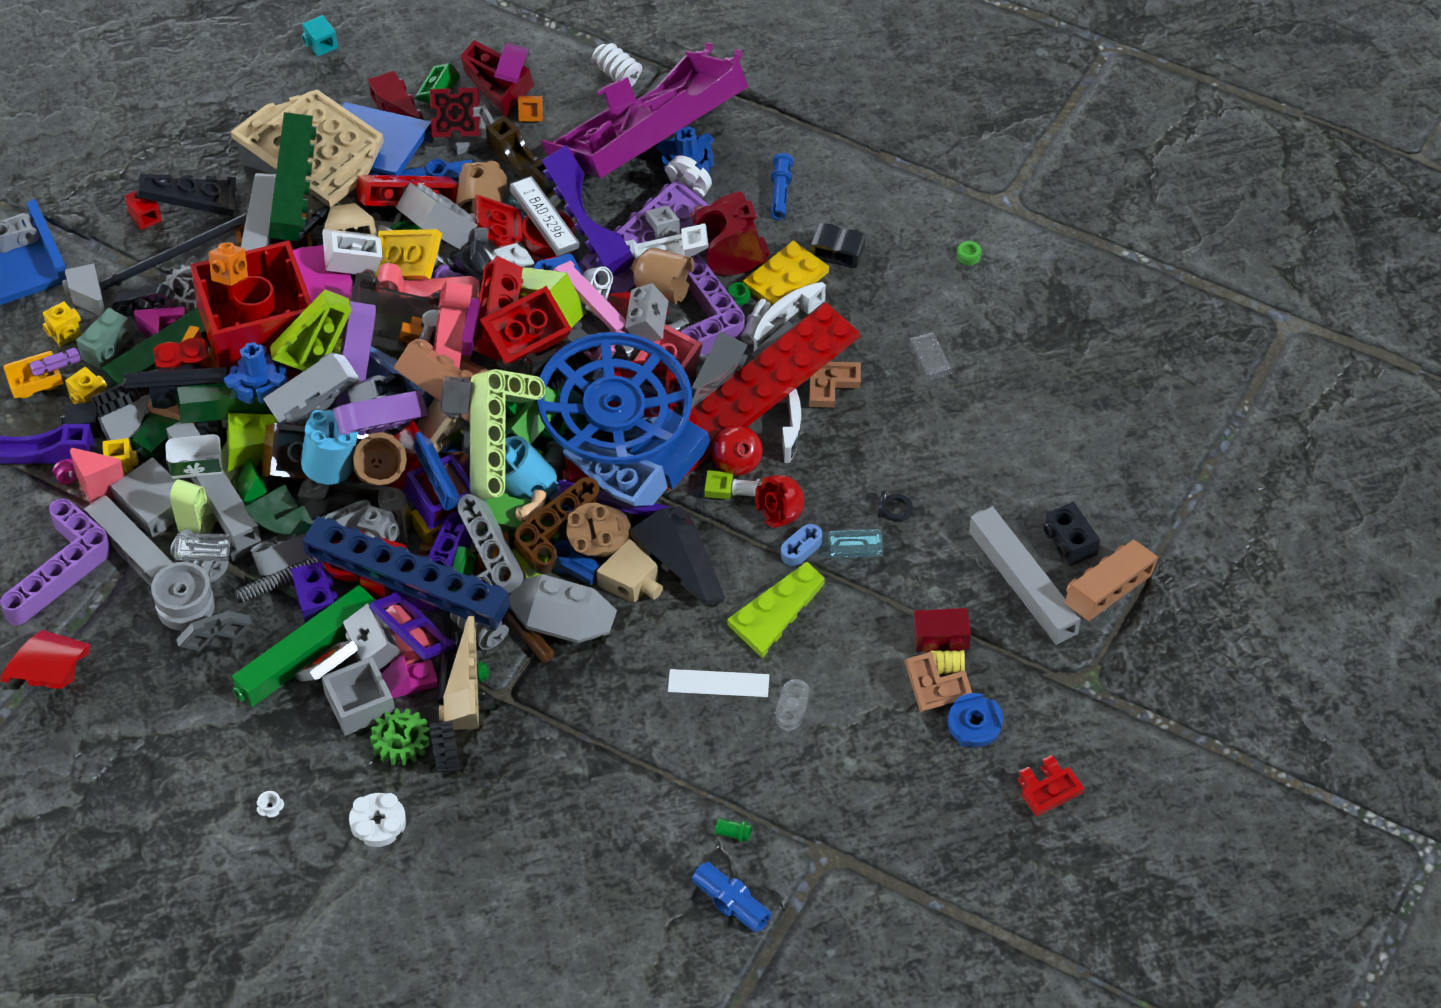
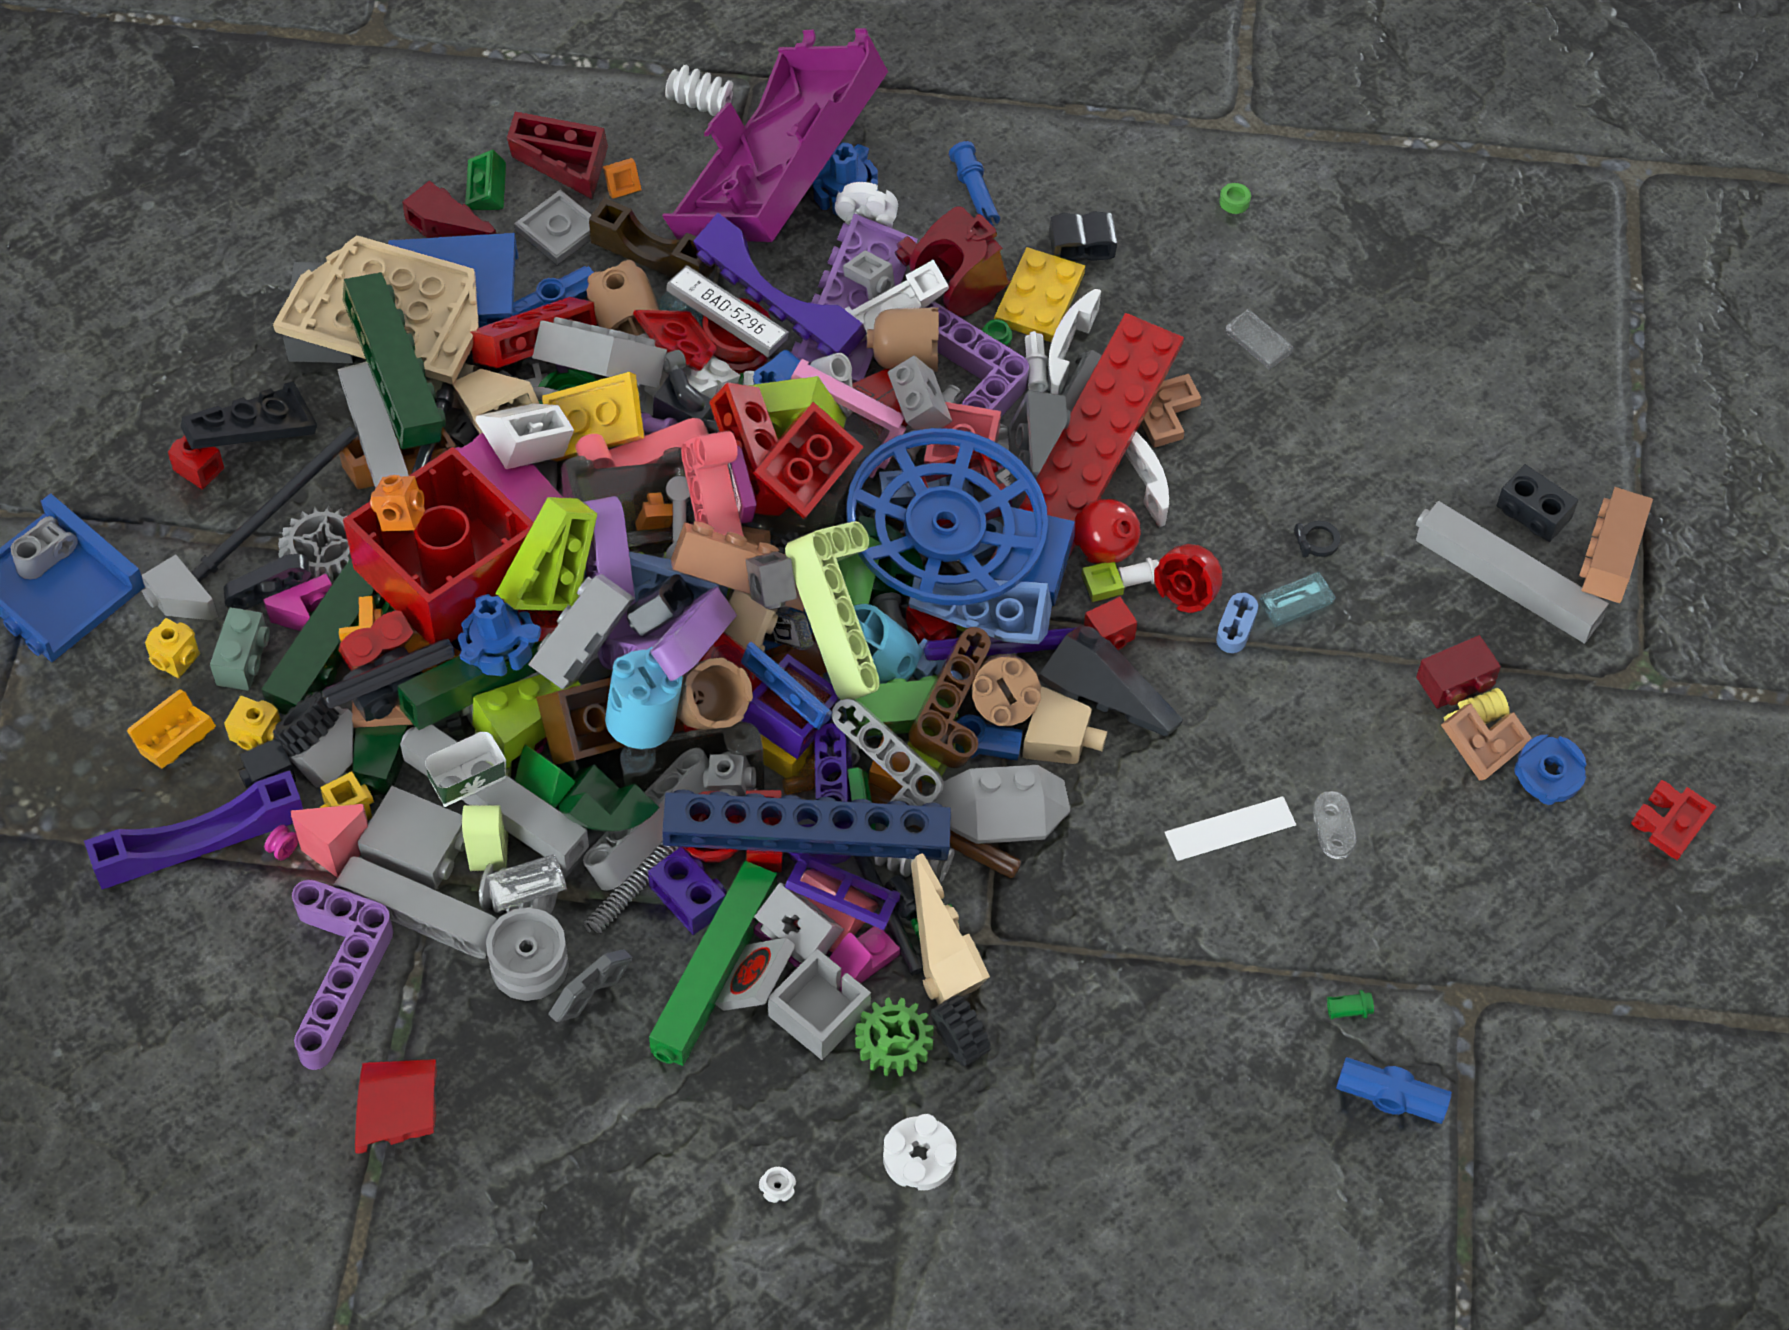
camera: 25 degrees left, 5 degrees up
(55, 362) = (193, 702): medium lavender axle -> none
(319, 35) = (304, 163): teal brick -> none
(455, 112) = (542, 211): dark red brick -> none
(511, 62) = (581, 125): magenta slope -> none
(528, 510) = (918, 688): light nougat arm -> none
(706, 515) = (1113, 622): none -> red brick
(770, 613) = (1248, 716): lime wing -> none

